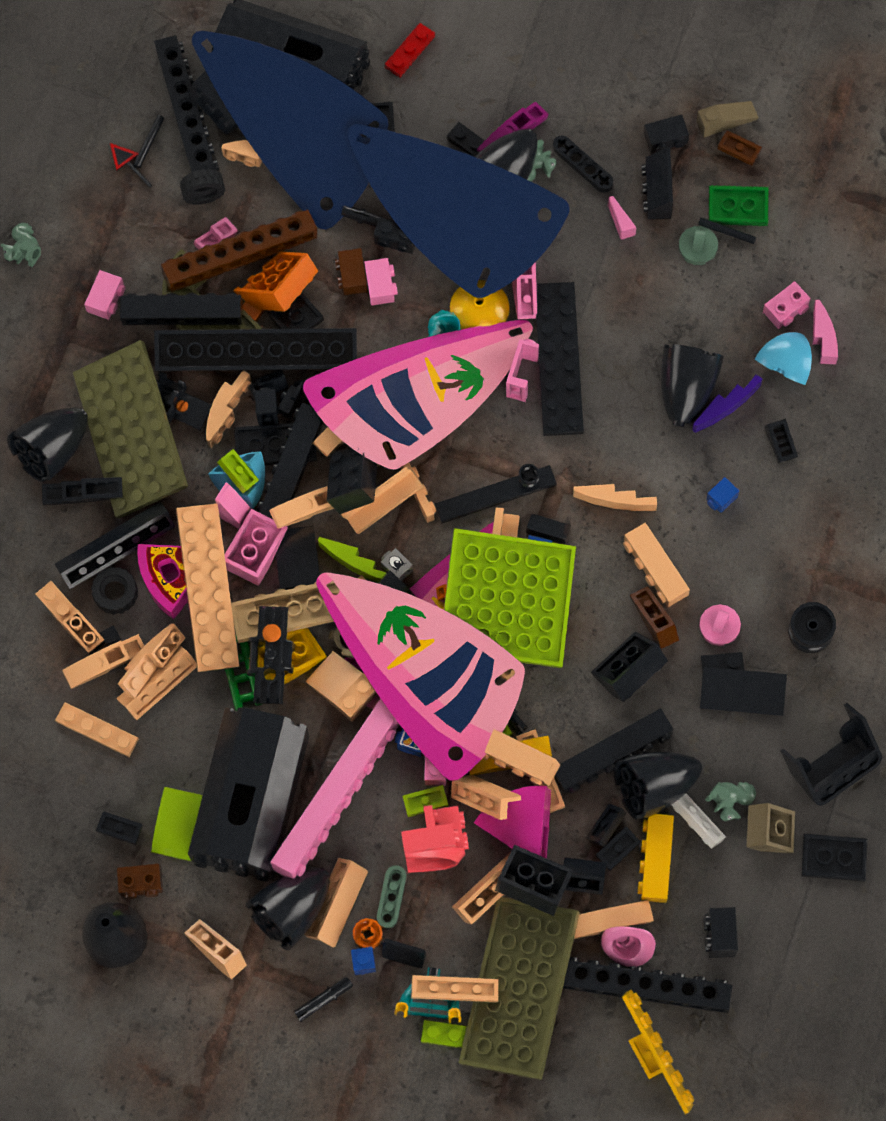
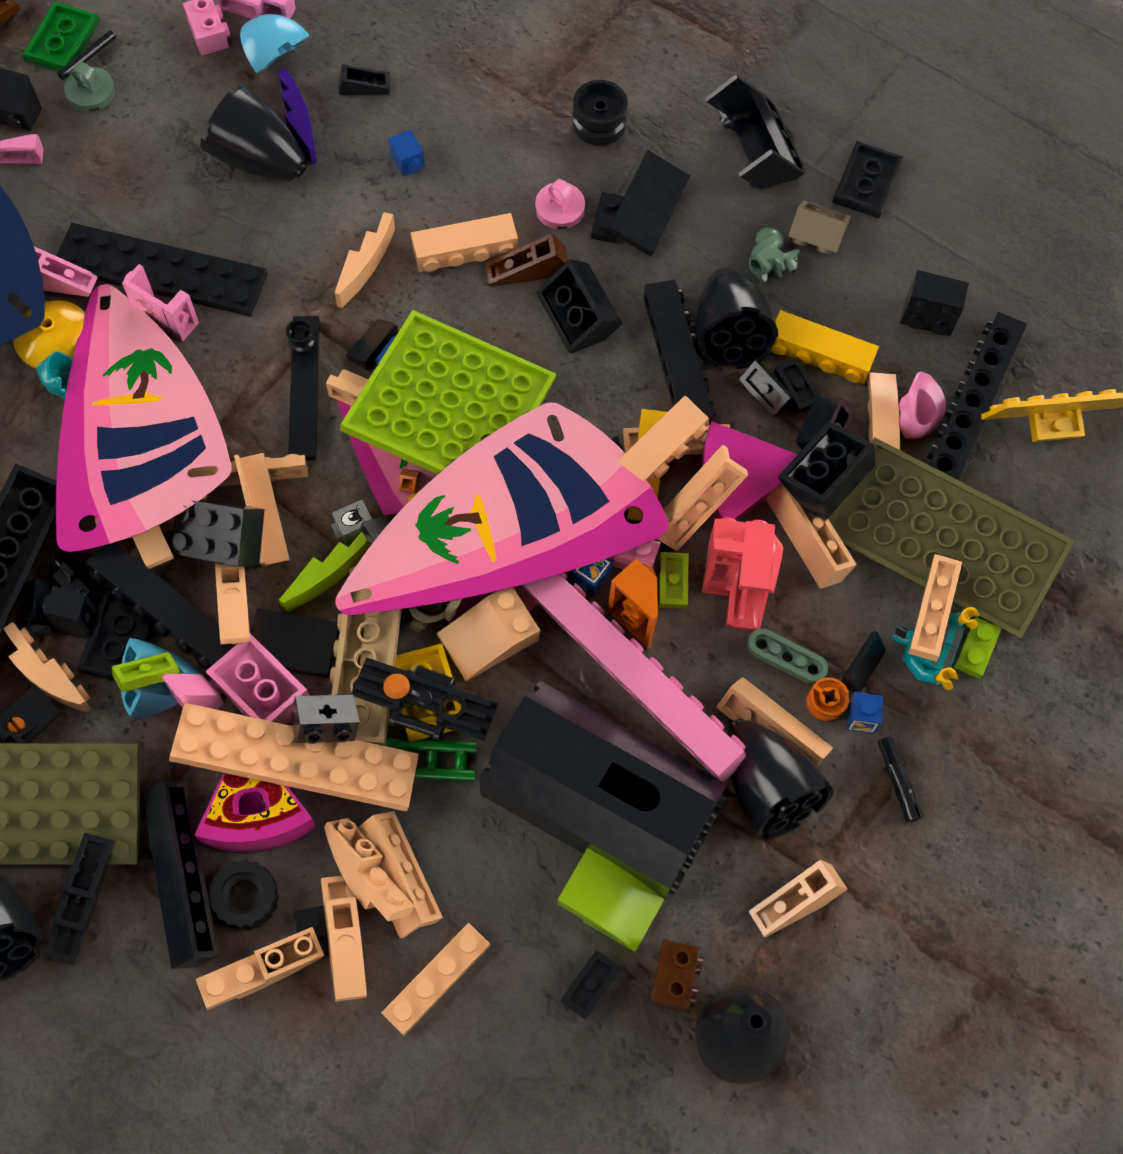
camera: 80 degrees left, 5 degrees down
(236, 585) = (324, 718): none -> brick
(389, 776) = (635, 601): none -> orange slope
(698, 821) = (789, 293): white plate -> none

